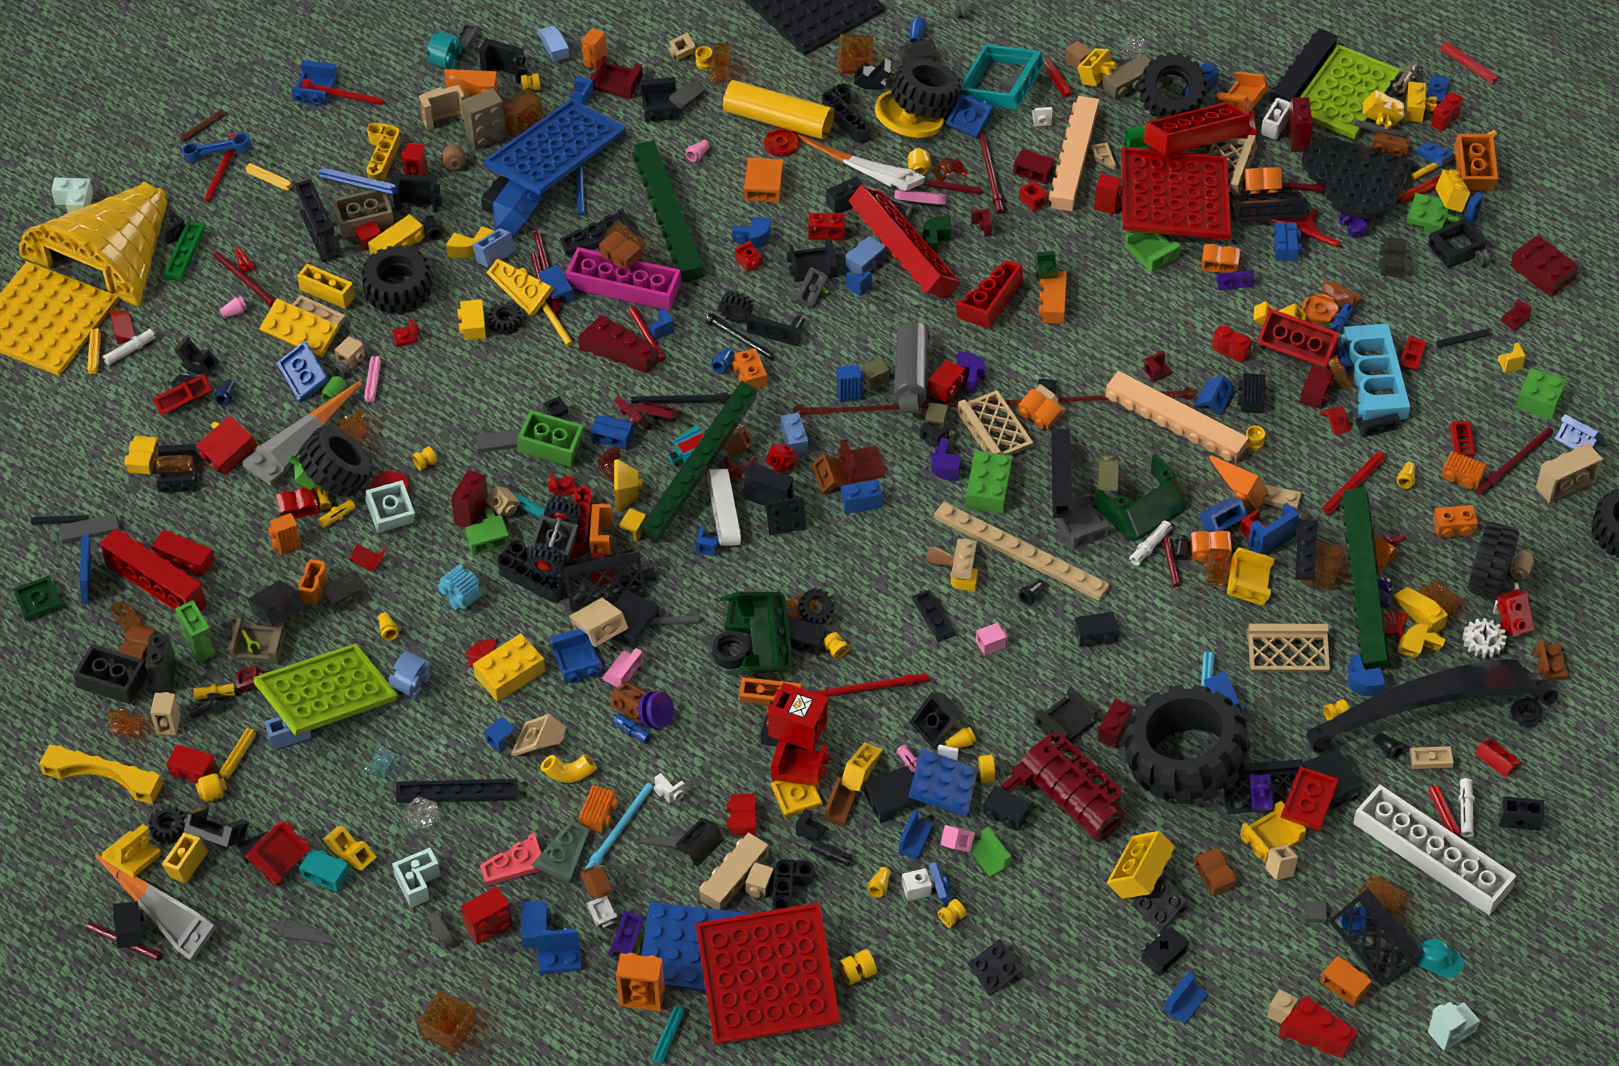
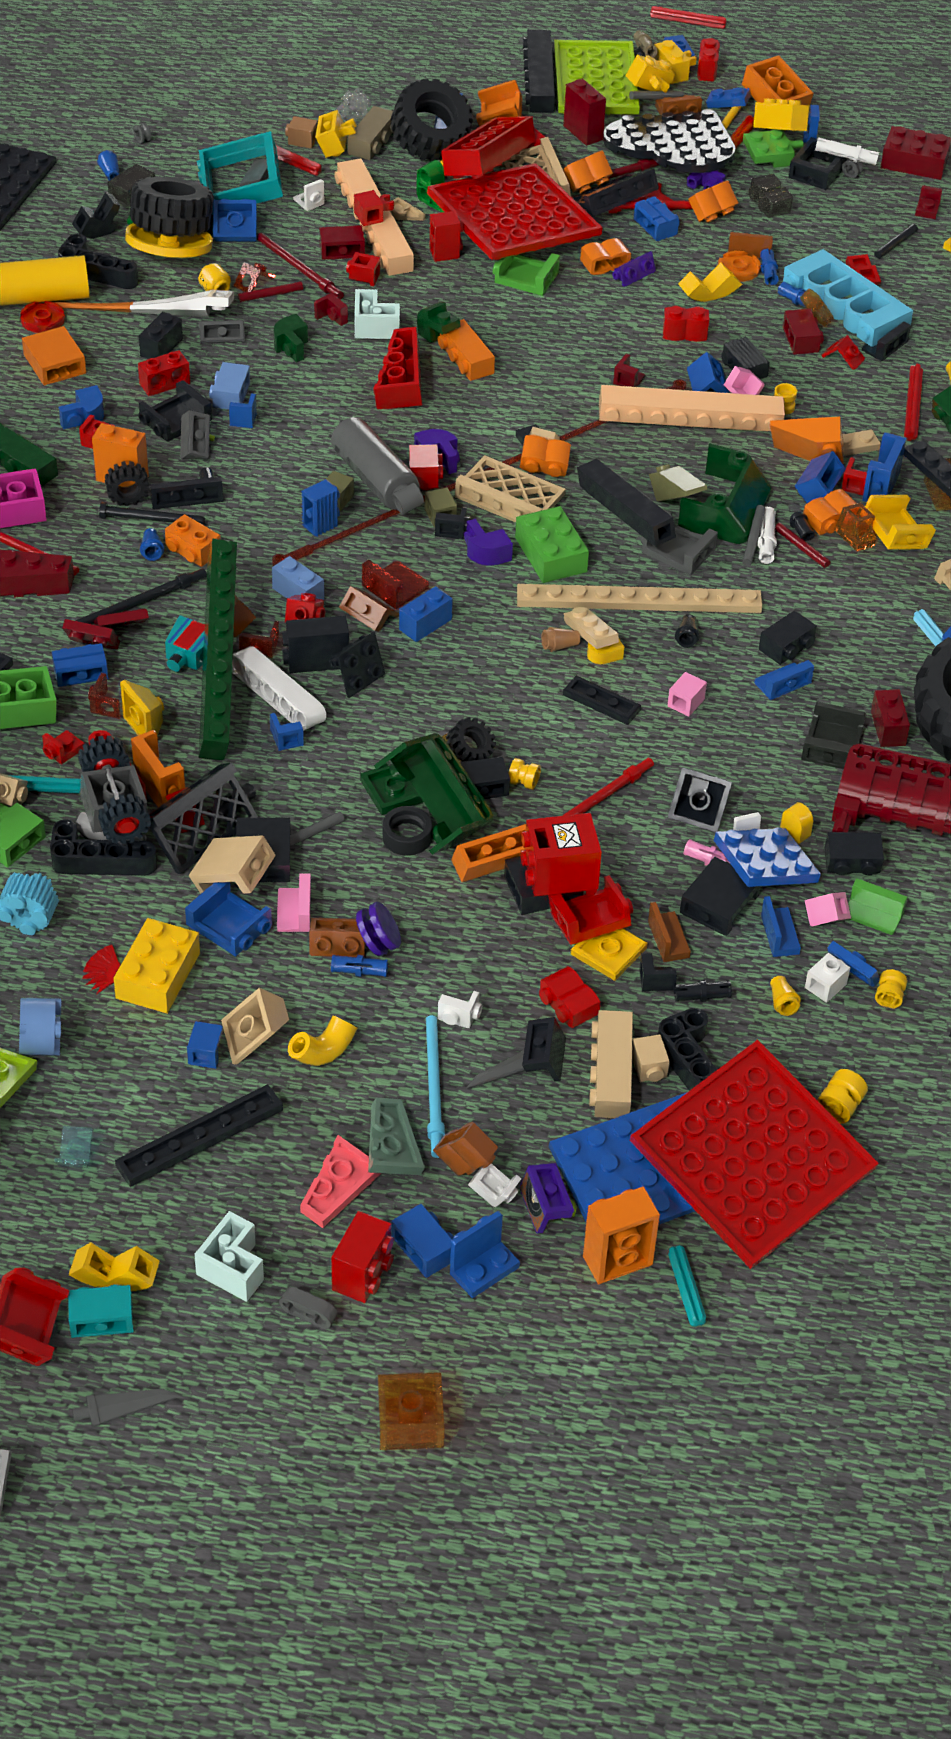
camera: 35 degrees left, 5 degrees down
(422, 813) = (180, 1179): clear brick -> none
(598, 808) = (393, 1070): orange brick -> none
(633, 522) = (185, 744): yellow panel -> none
(663, 326) = (52, 535): blue panel -> none
(745, 279) = (117, 445): none -> orange brick
(854, 51) = (60, 204): clear orange brick -> none
(860, 766) = (662, 884): yellow slope -> none
(904, 242) = (266, 354): red brick -> none
(918, 196) = (243, 310): bright pink beam -> none
(961, 739) = (745, 803): yellow cone -> none
(1004, 240) = (372, 318): none -> light aqua brick
(1067, 148) = (370, 207): none -> red brick
(1070, 659) = (785, 679): none -> blue panel
(1140, 538) = (754, 534): none -> dark grey bar
(1232, 413) = (743, 382): none -> bright pink panel
(1276, 119) = (553, 117): white brick -> none
(1298, 338) = (751, 292): red brick -> none
(1340, 245) = (713, 201): none -> orange brick
(1484, 248) = (847, 151): none -> white pin

